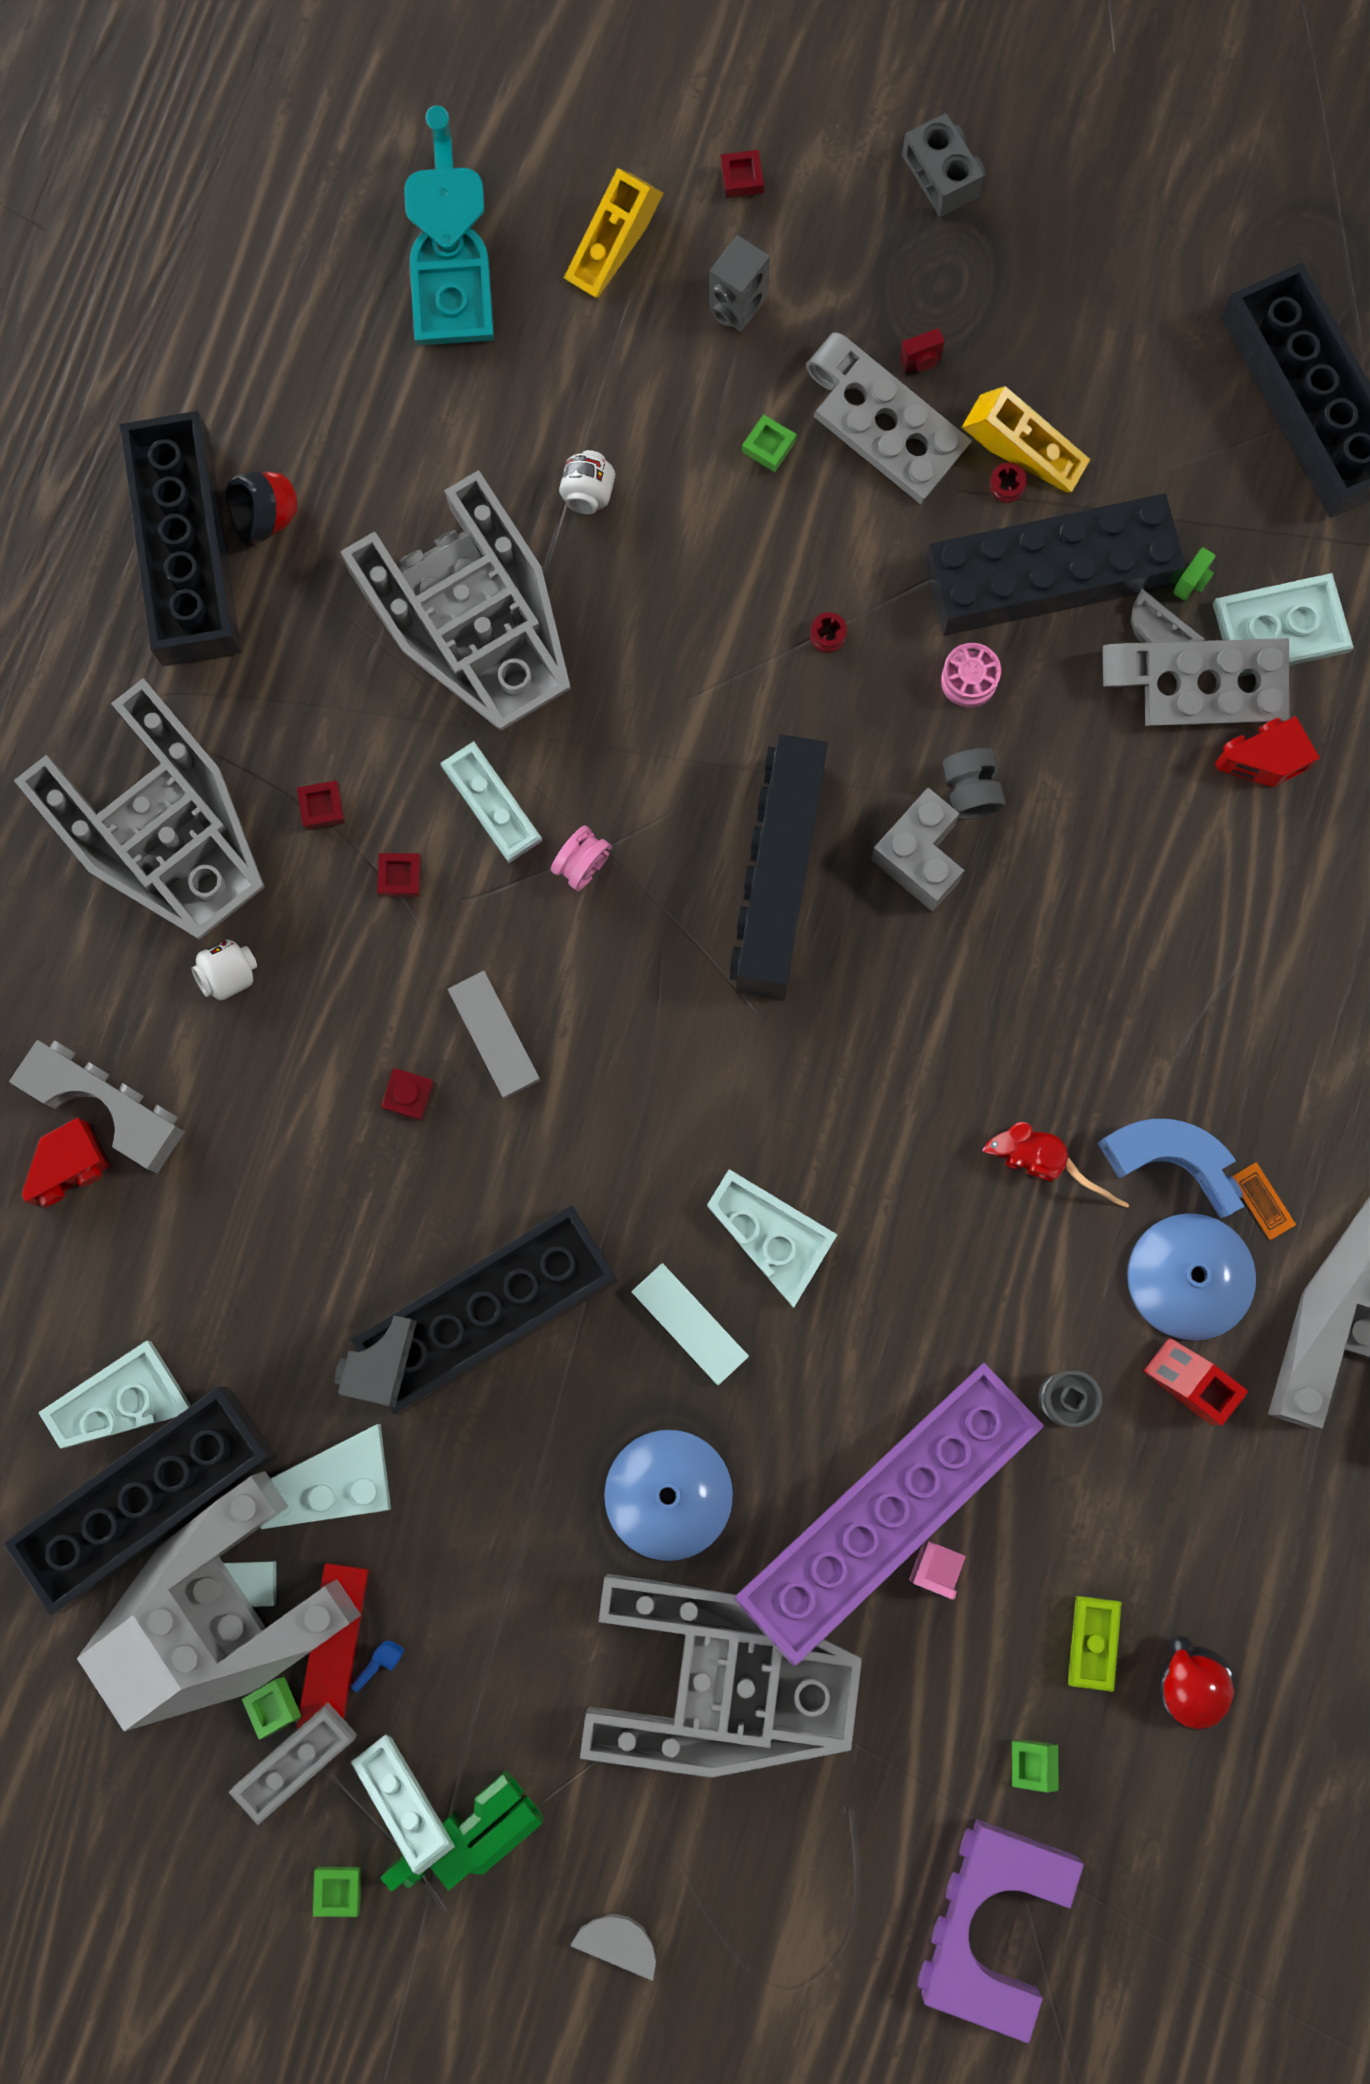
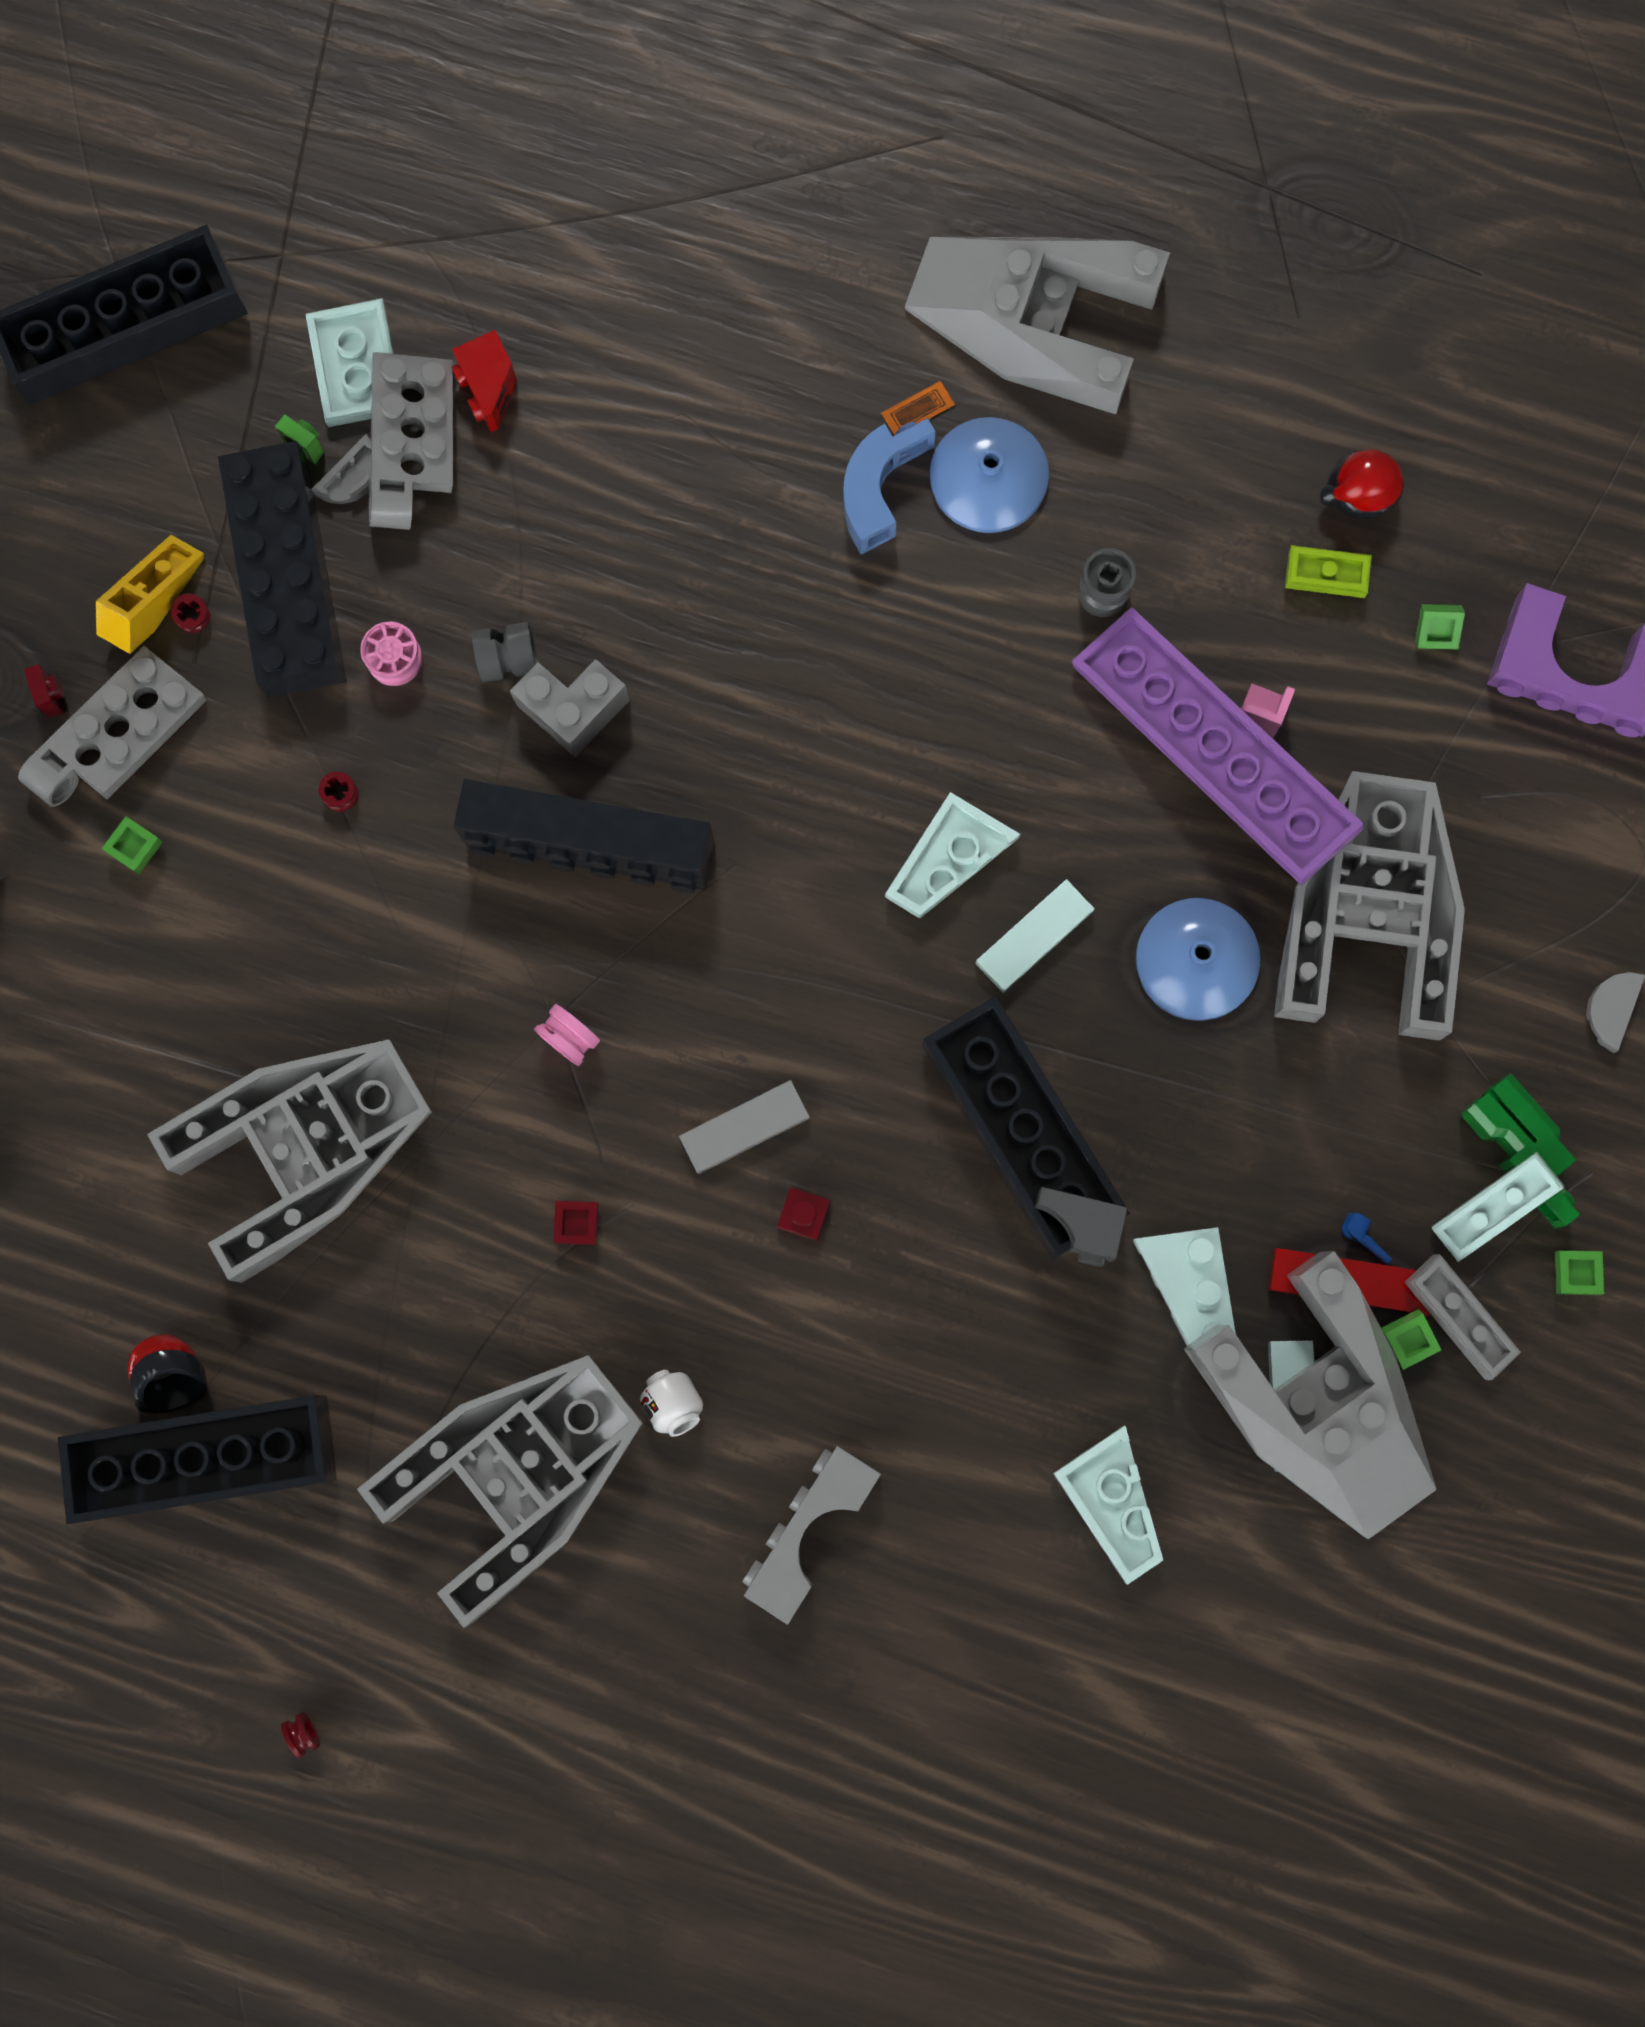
camera: 90 degrees left, 0 degrees up
(63, 1160) = (869, 1569): red slope -> none
(139, 1500) = (1215, 1474): black brick -> none
(321, 805) = (498, 1305): dark red plate -> none
(448, 557) = (241, 1179): light grey bracket -> none
(491, 802) = (501, 1131): light aqua tile -> none
(587, 482) = (163, 1028): white head -> none
(1040, 1154) = (874, 604): red animal -> none
(1195, 1382) = (1091, 470): red slope -> none

